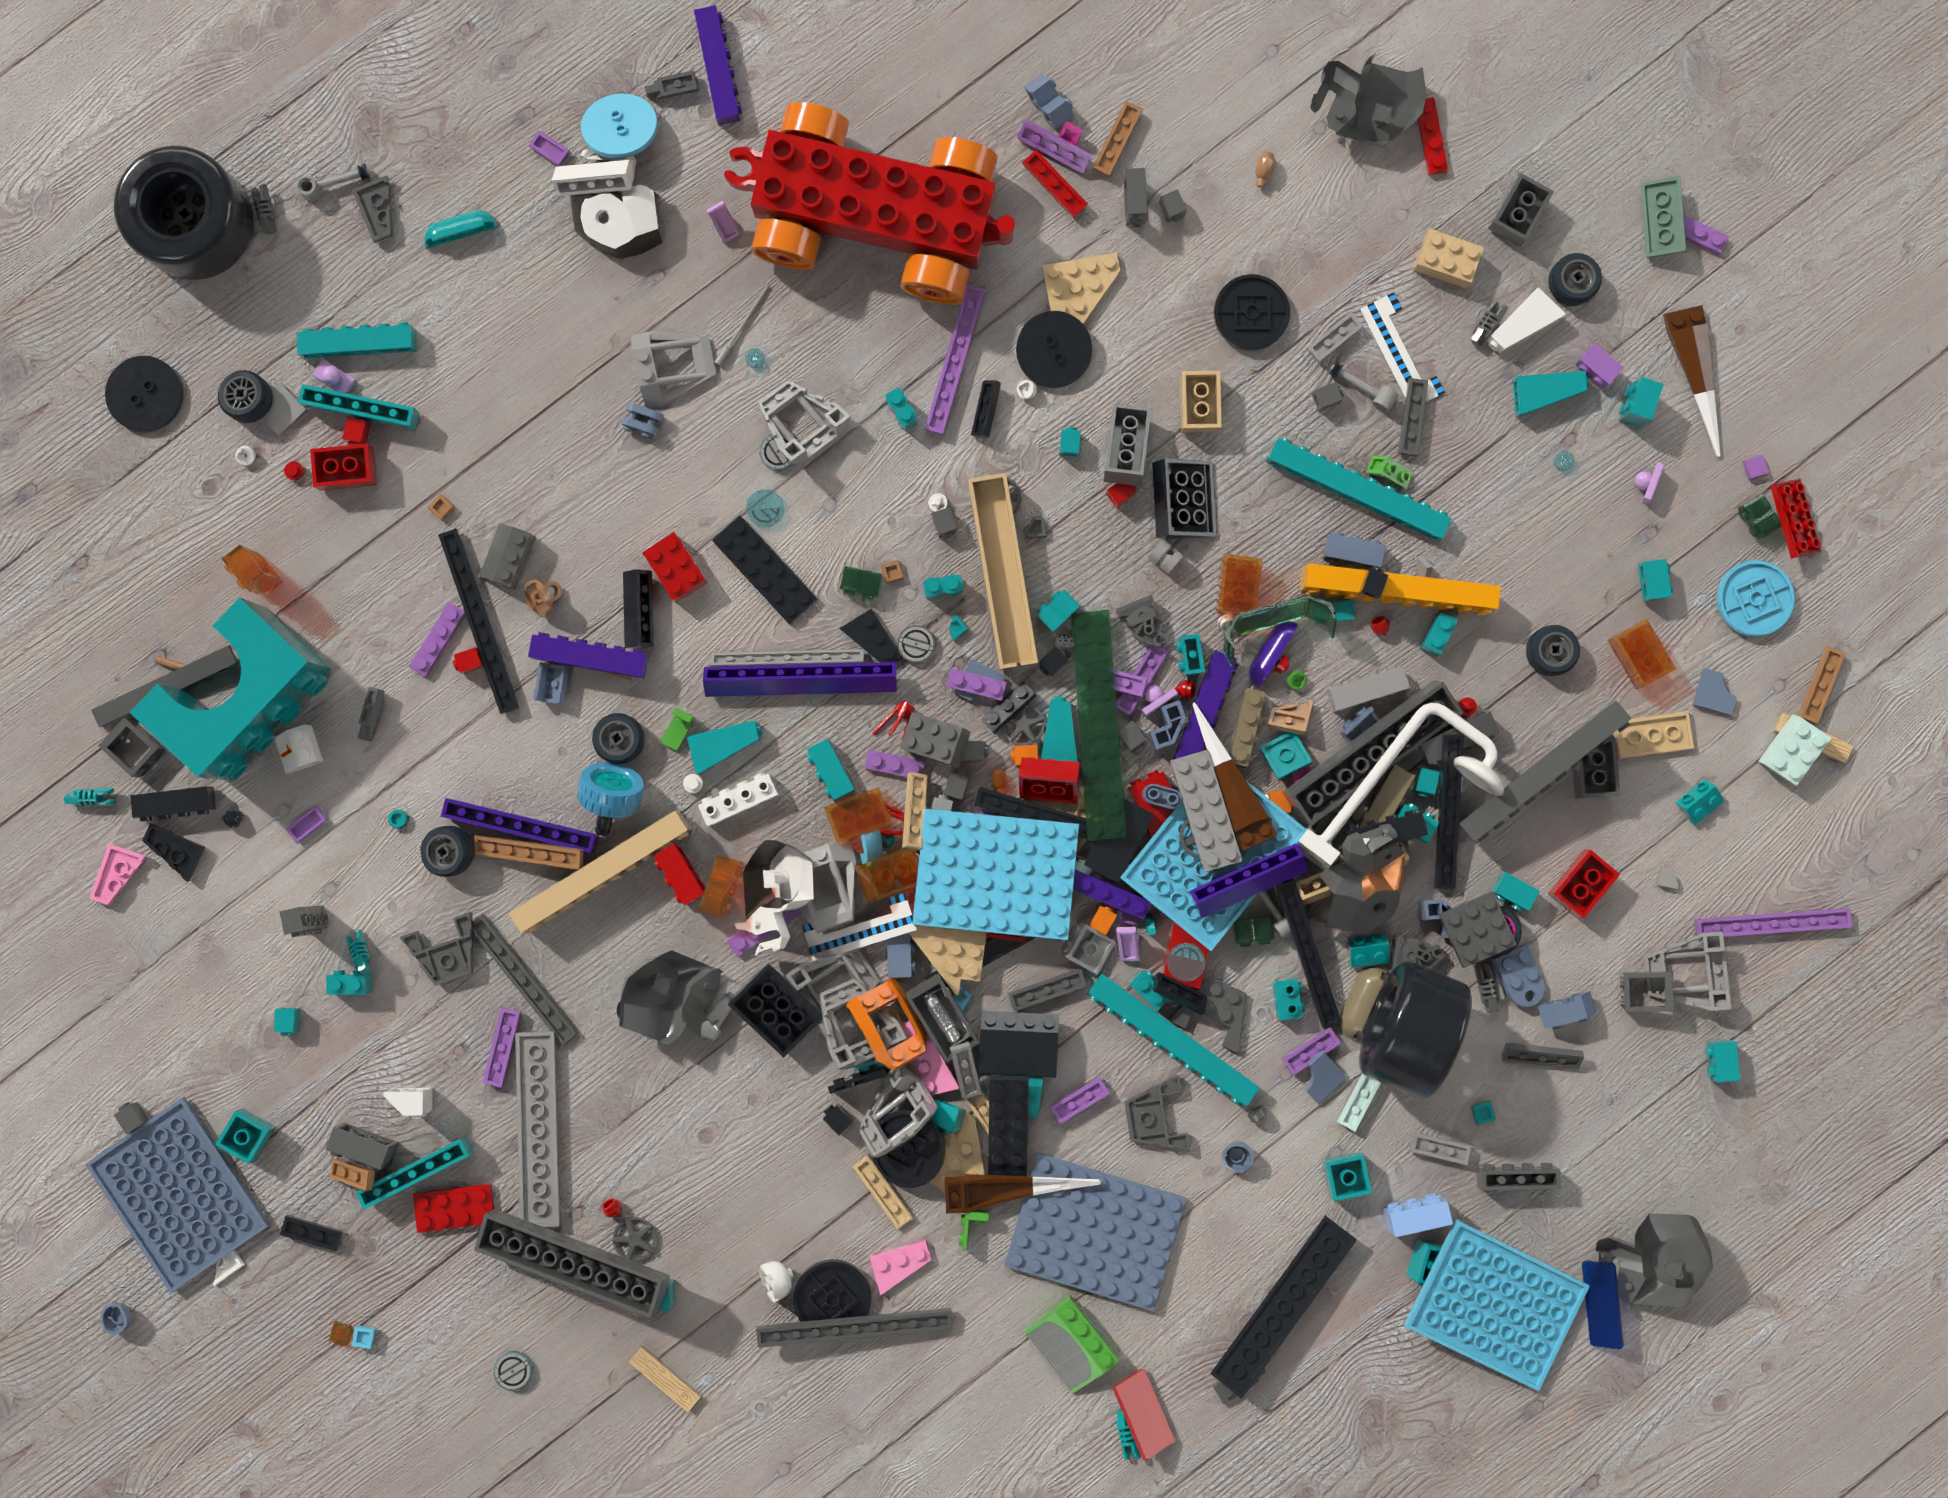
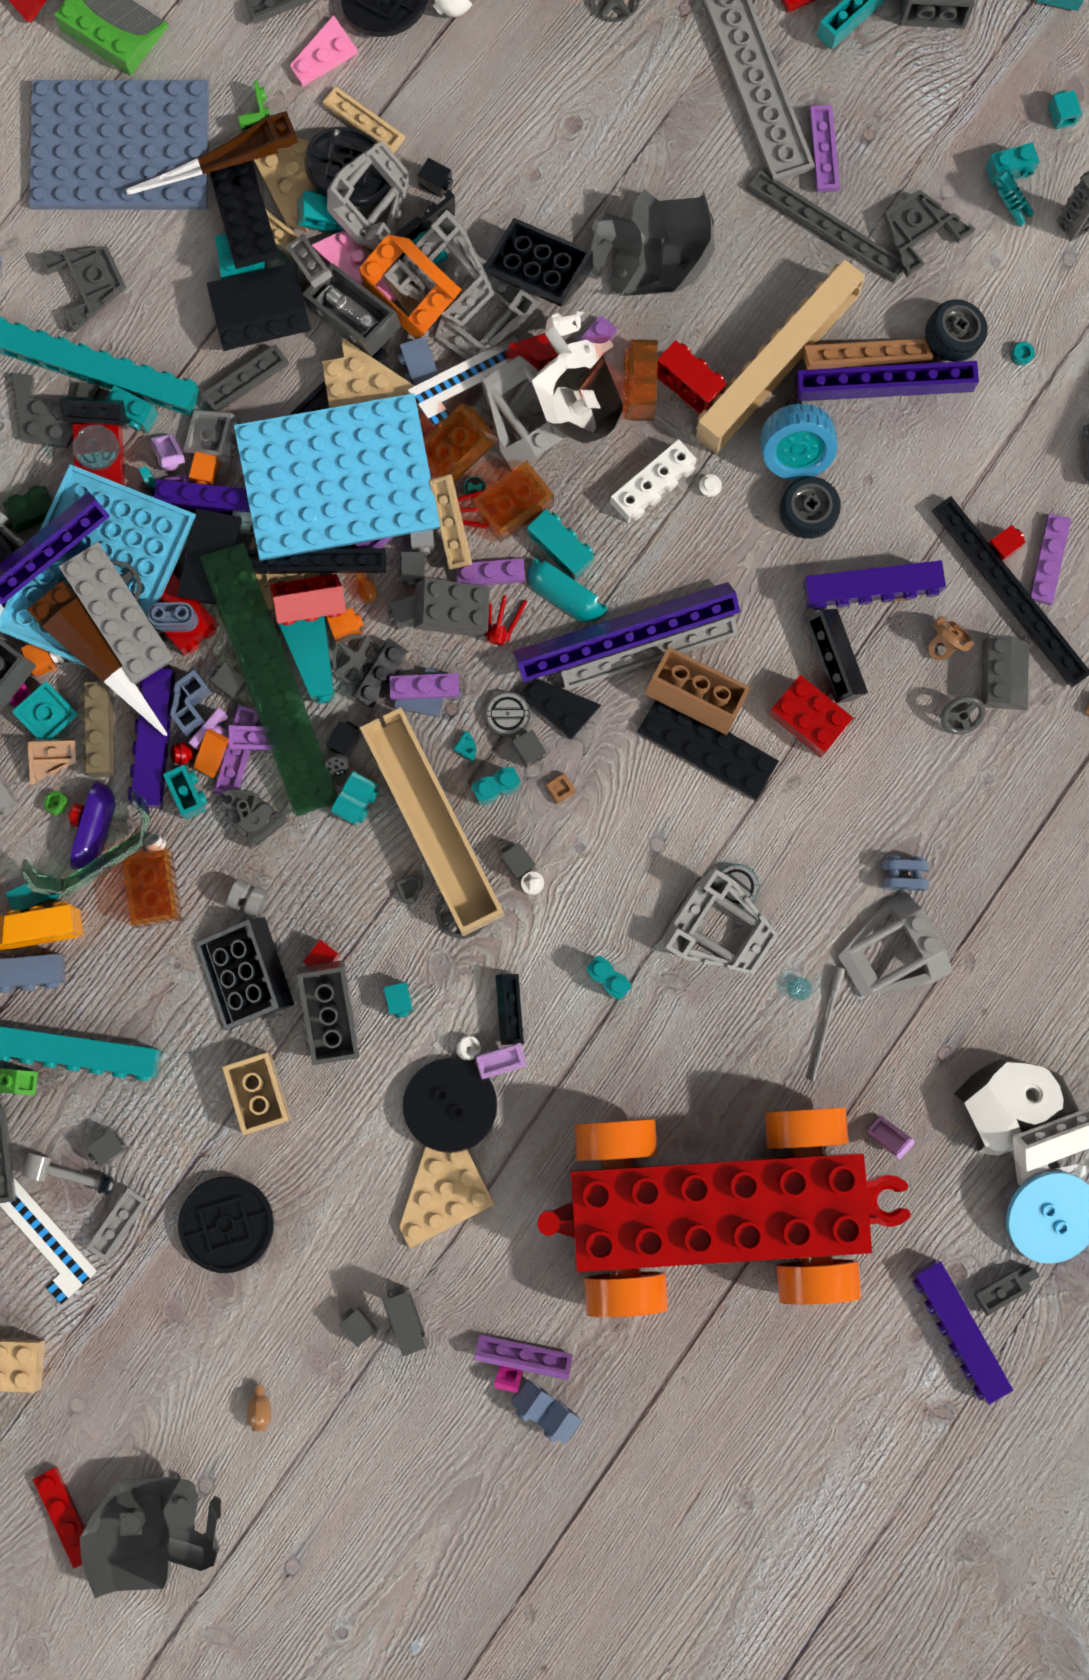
camera: 160 degrees right, 5 degrees down
(411, 1101) = (903, 62): white slope -> none
(551, 683) = (905, 543): sand blue bracket -> none
(553, 535) = (960, 710): none -> dark grey piece
(612, 1208) = (650, 20): red plate -> none
(677, 729) = (747, 539): bright green bracket -> none
(720, 744) = (695, 534): teal slope -> none
(758, 612) = (697, 690): none -> medium nougat brick
(765, 508) = (730, 817): clear light blue tile -> none
(802, 938) = (534, 350): none -> red slope
(840, 730) = (564, 592): none -> teal brick
(861, 582) = (592, 763): clear green brick -> none
(871, 845) = (487, 470): medium azure slope -> none
(907, 610) = (529, 747): none -> dark grey brick
(955, 360) = (563, 1057): medium lavender plate -> none
(963, 998) = (335, 344): medium azure tile -> none
(1004, 369) = (501, 1061): none -> lavender tile
(1055, 184) = (509, 1310): red plate -> none
(1079, 1100) = (175, 273): medium lavender plate -> none
(1117, 139) = (449, 1391): medium nougat plate -> none
(1162, 680) = (211, 753): none -> orange tile

